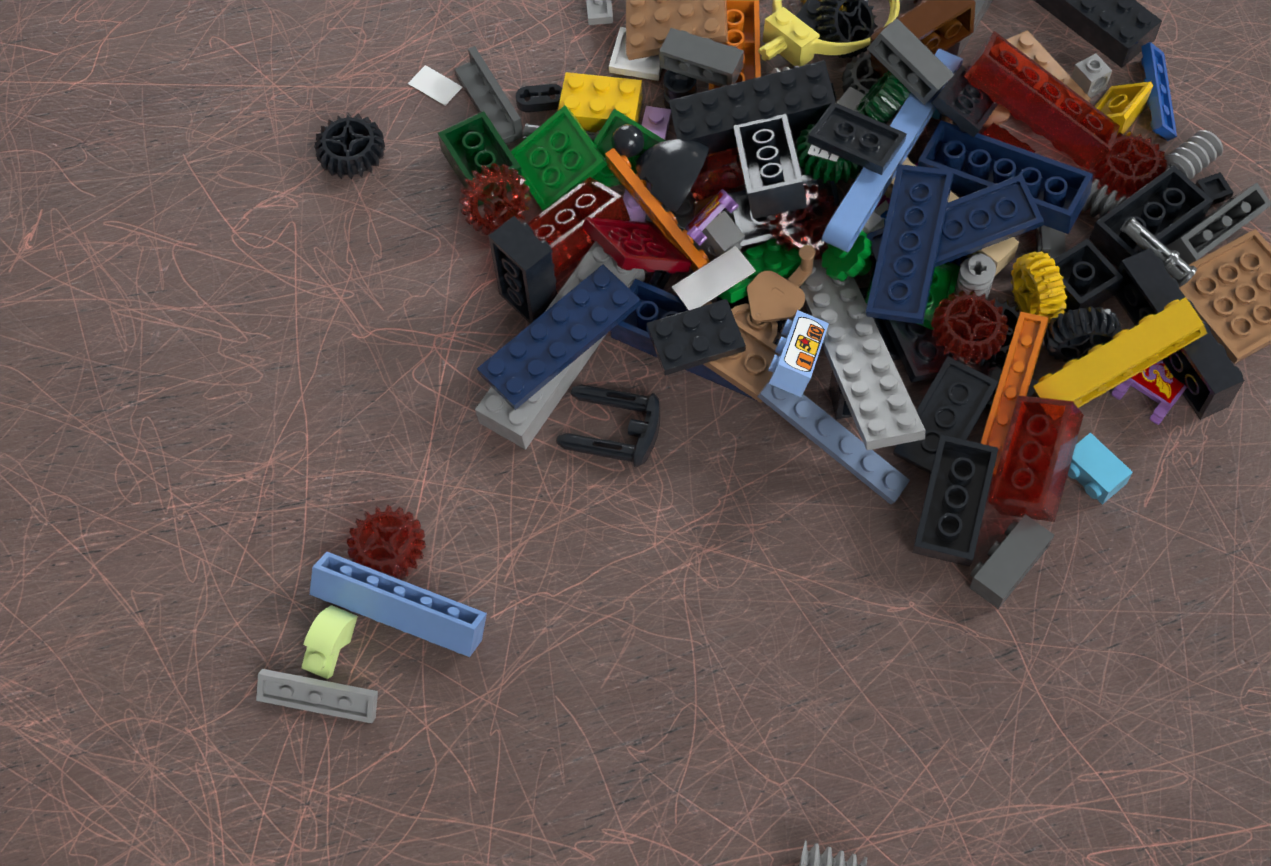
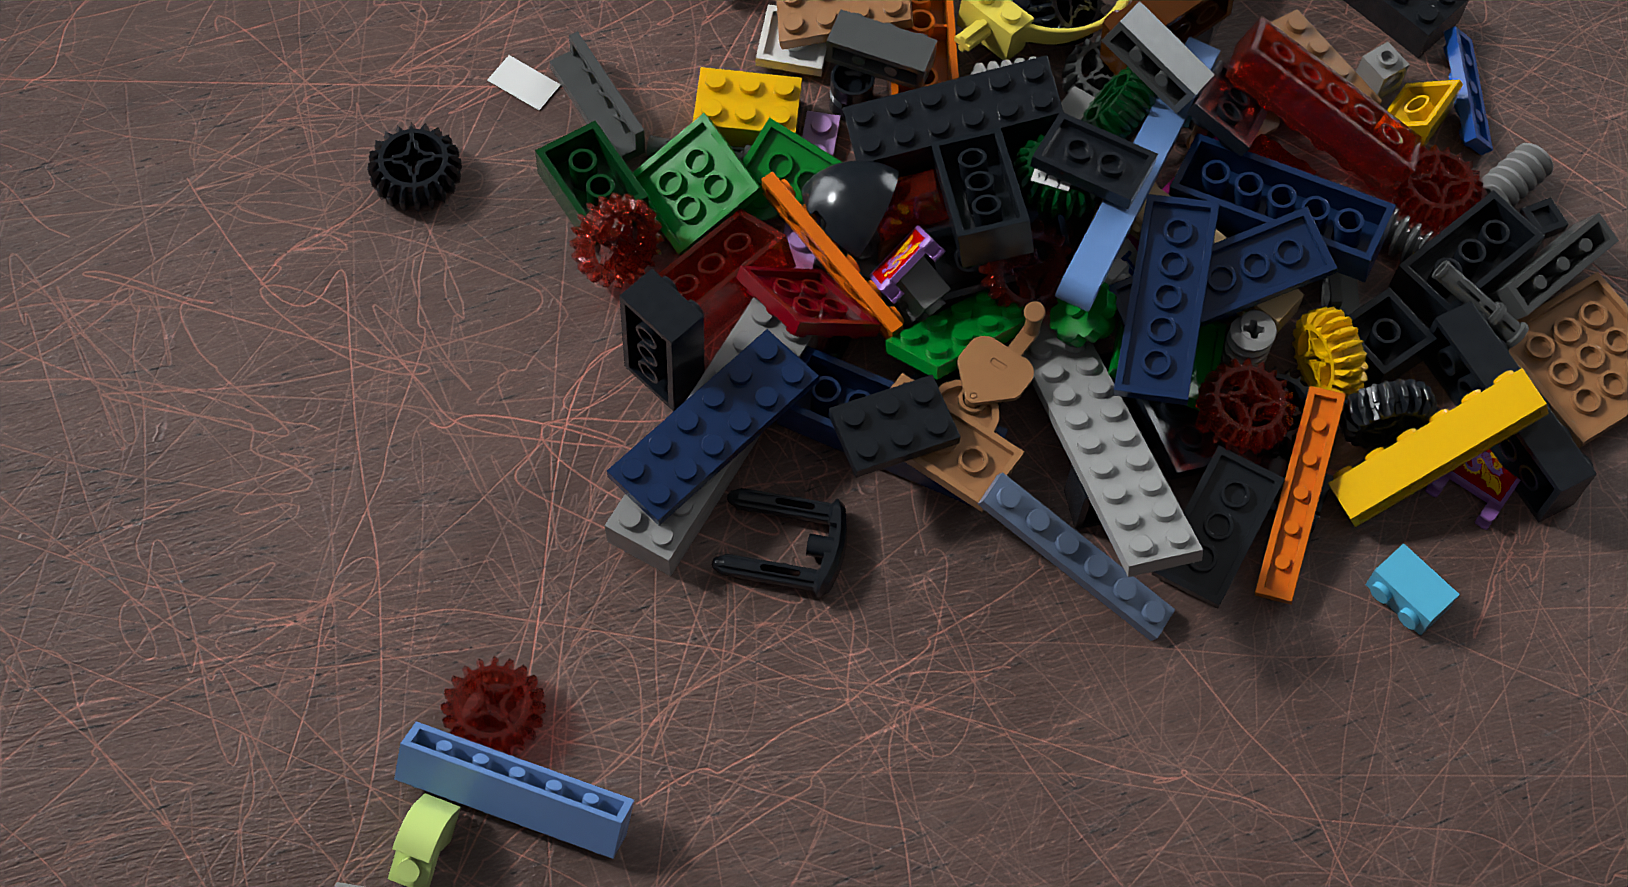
camera: 10 degrees left, 0 degrees up
(539, 97) = (665, 100): black beam -> none
(628, 140) = (790, 161): black piece -> none
(713, 278) = (913, 347): white sticker -> none
(797, 353) = (1029, 446): brick -> none
(955, 500) = (1237, 636): black brick -> none
(1010, 560) = (1308, 713): dark grey brick -> none
(1036, 458) = (1337, 579): clear red brick -> none

